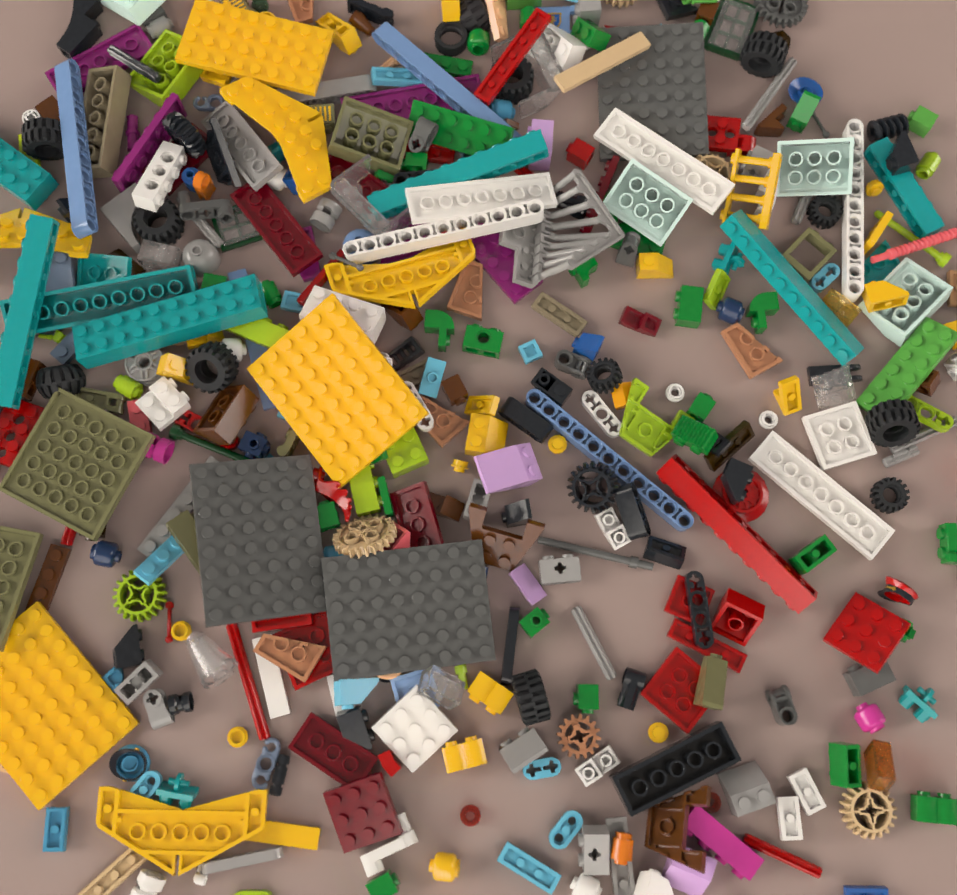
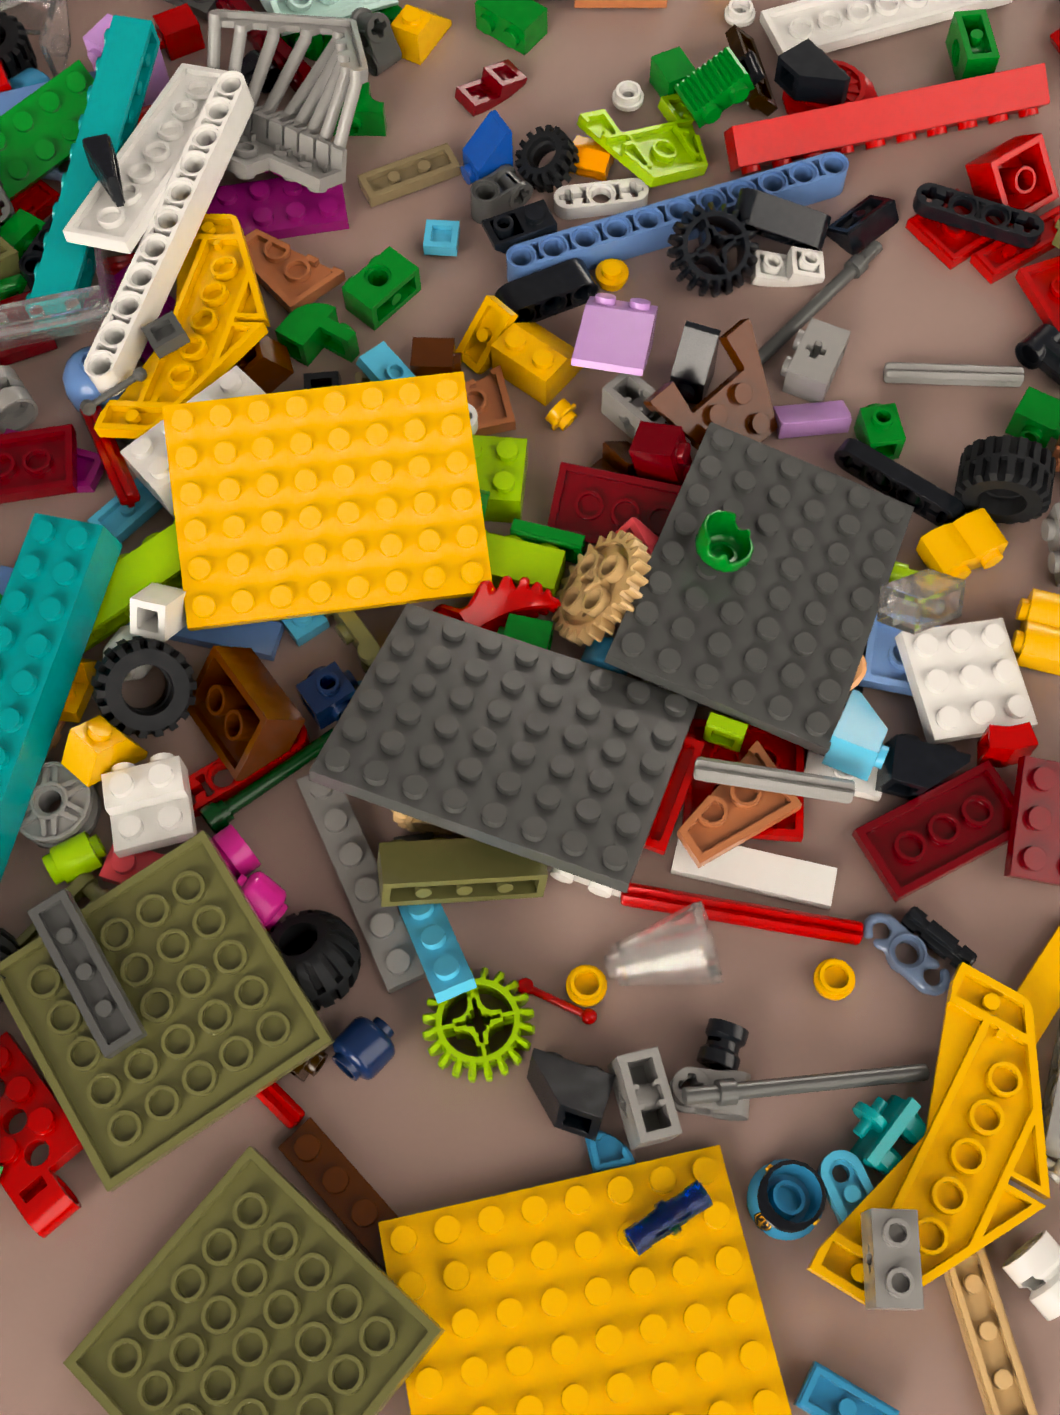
camera: 55 degrees left, 10 degrees down
(70, 427) = (87, 973): none -> dark grey plate
(91, 717) = (667, 1217): none -> clear blue pin
(112, 818) = (891, 1259): none -> light grey brick
(134, 511) = (319, 954): none -> black wheel
(146, 474) = (265, 897): none -> dark pink head
(155, 715) = (728, 1091): none -> dark grey bar
(245, 351) = (157, 612): none -> white brick
(306, 664) = (774, 780): none -> light grey axle
(323, 631) = (724, 731): none -> lime tile
(384, 266) = (165, 334): none -> dark grey plate
(405, 581) = (723, 543): none -> green hair
(451, 183) = (105, 165): none -> black slope
(451, 525) = (661, 453): none -> dark red brick

